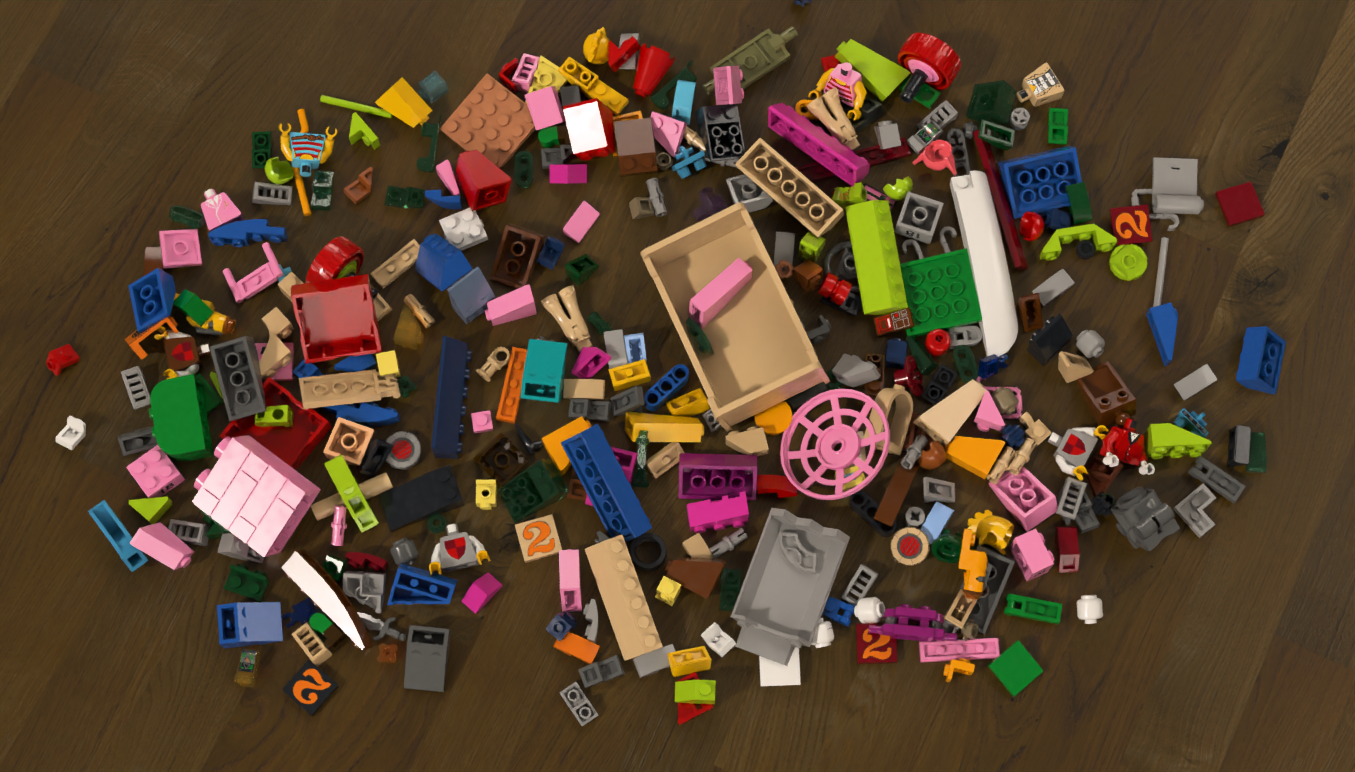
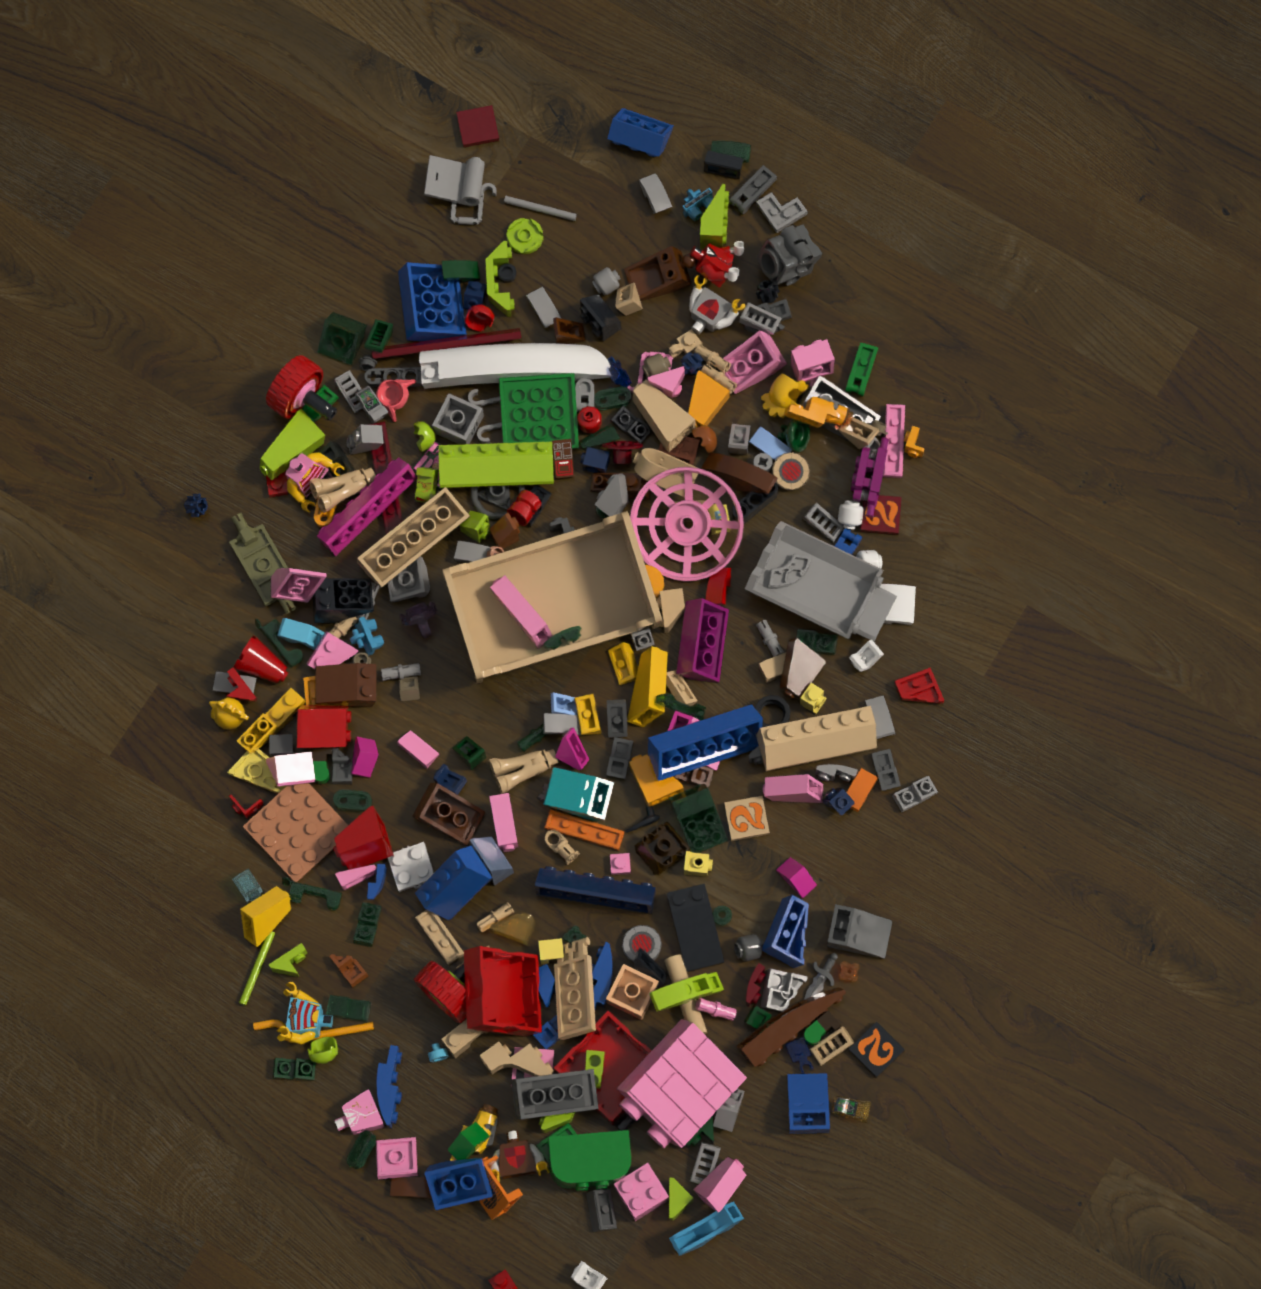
camera: 80 degrees left, 0 degrees up
(132, 372) = (529, 1206): light grey slope -> none
(247, 583) = (764, 1107): dark green bracket -> none
(257, 279) = (443, 1079): bright pink plate -> none
(271, 200) = (345, 1074): light grey slope -> none
(457, 551) = (754, 895): torso -> none
(524, 83) = (253, 795): bright pink slope -> none
(584, 389) = (598, 758): tan slope -> none
(669, 379) = (602, 672): blue beam -> none
(689, 661) = (883, 686): yellow slope -> none
(695, 691) = (916, 679): lime slope -> none
(718, 513) = (741, 642): dark pink wedge -> none
(914, 452) = (700, 453): light grey pin -> none
(1015, 668) = (917, 392): green tile -> none
(1022, 115) = (362, 310): light grey wheel -> none
(1041, 87) = (330, 289): tan torso -> none
(1057, 126) = (375, 281): green slope -> none
(1068, 549) = (804, 329): dark red slope -> none
(1089, 608) = (866, 319): white head -> none
(1100, 475) = (740, 289): copper slope -> none
(1131, 224) = (488, 226): tile -> none
(1163, 325) = (598, 212): blue slope -> none

